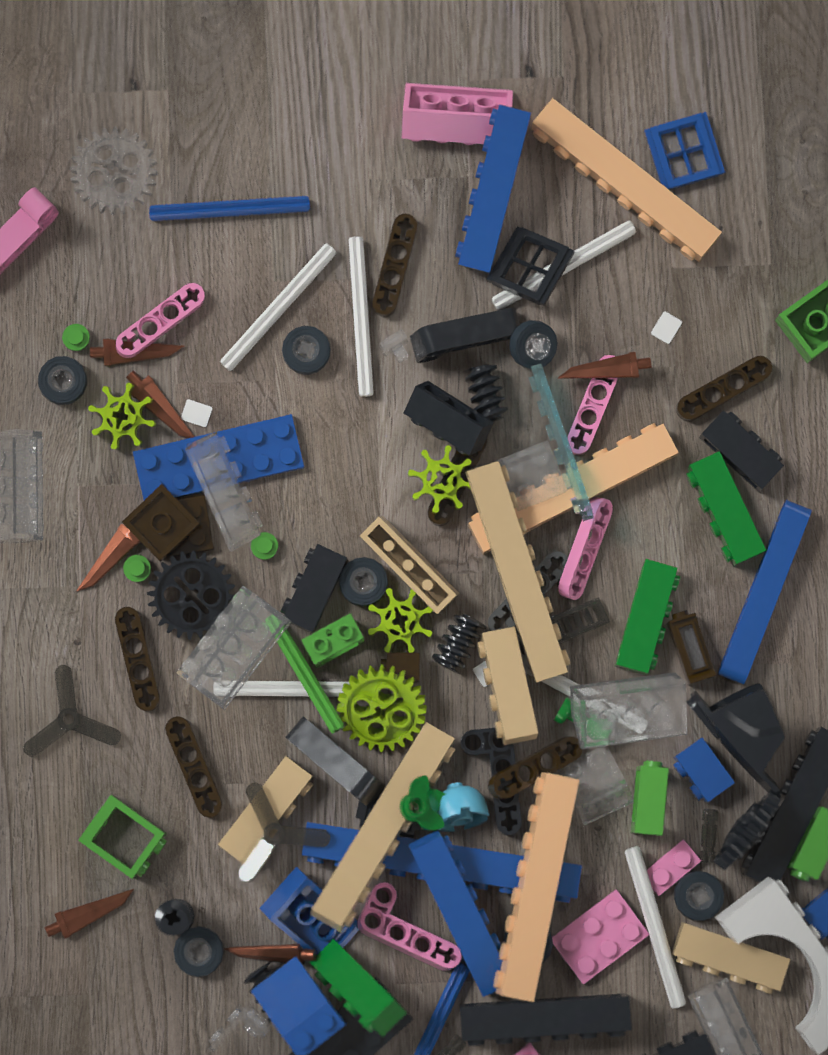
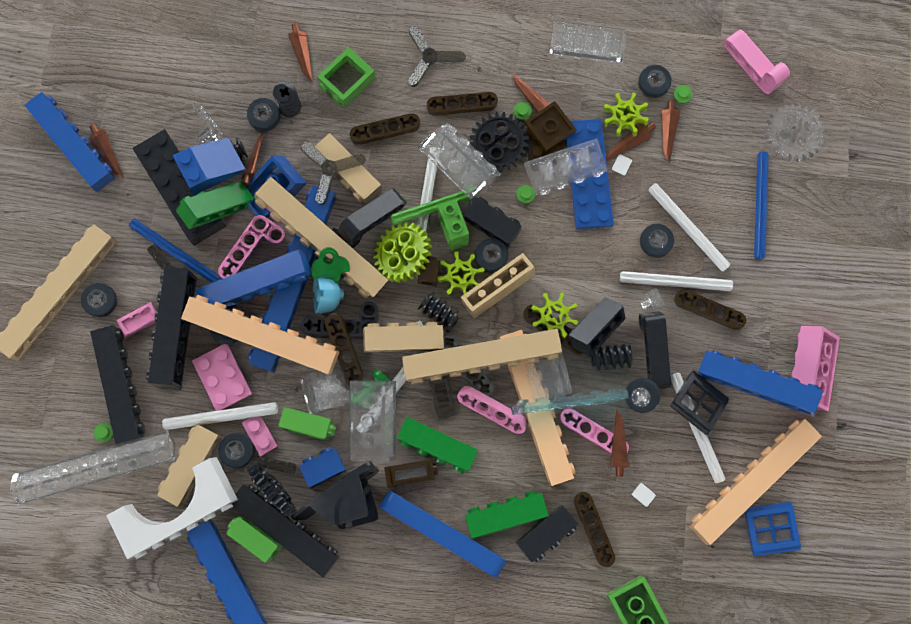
camera: 95 degrees right, 5 degrees down
(162, 323) = (691, 146): bright pink beam -> none

